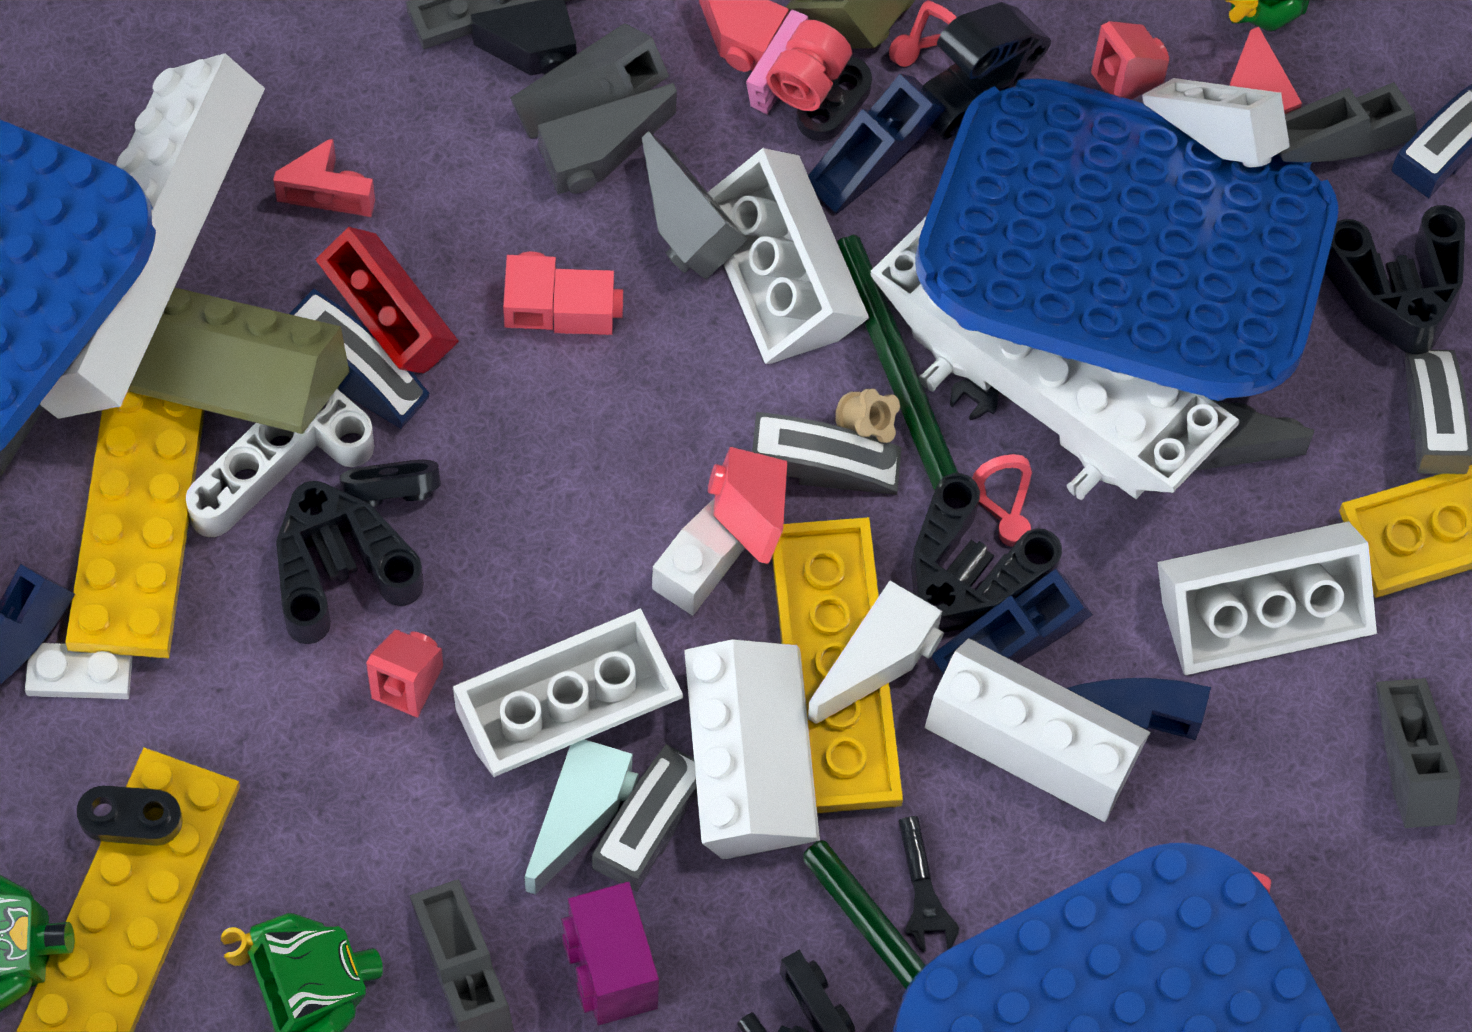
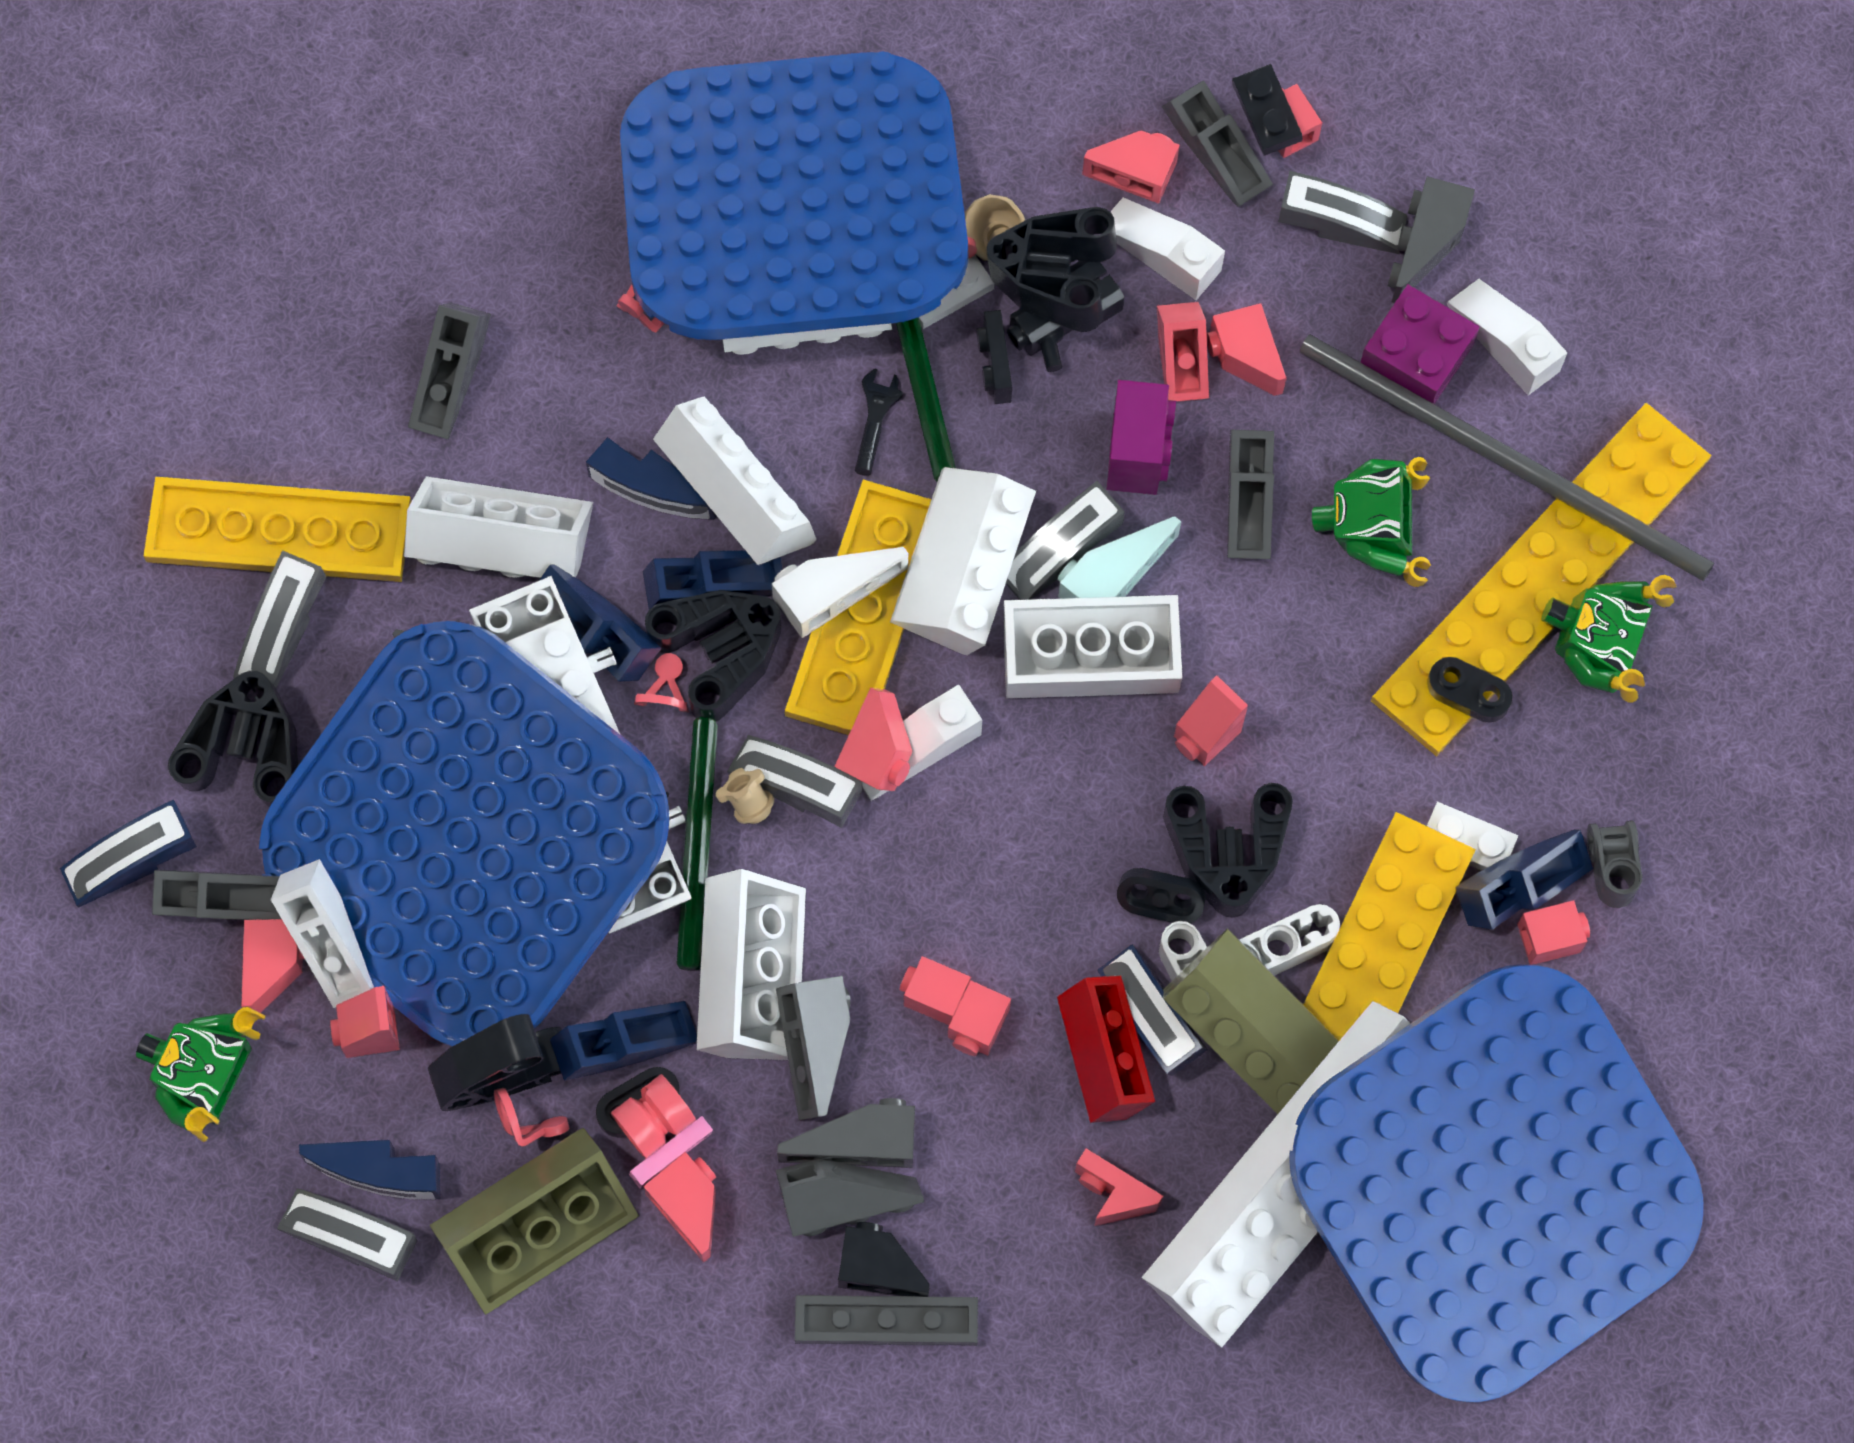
camera: 155 degrees left, 5 degrees up
(1114, 527) = (604, 626): none -> dark blue slope

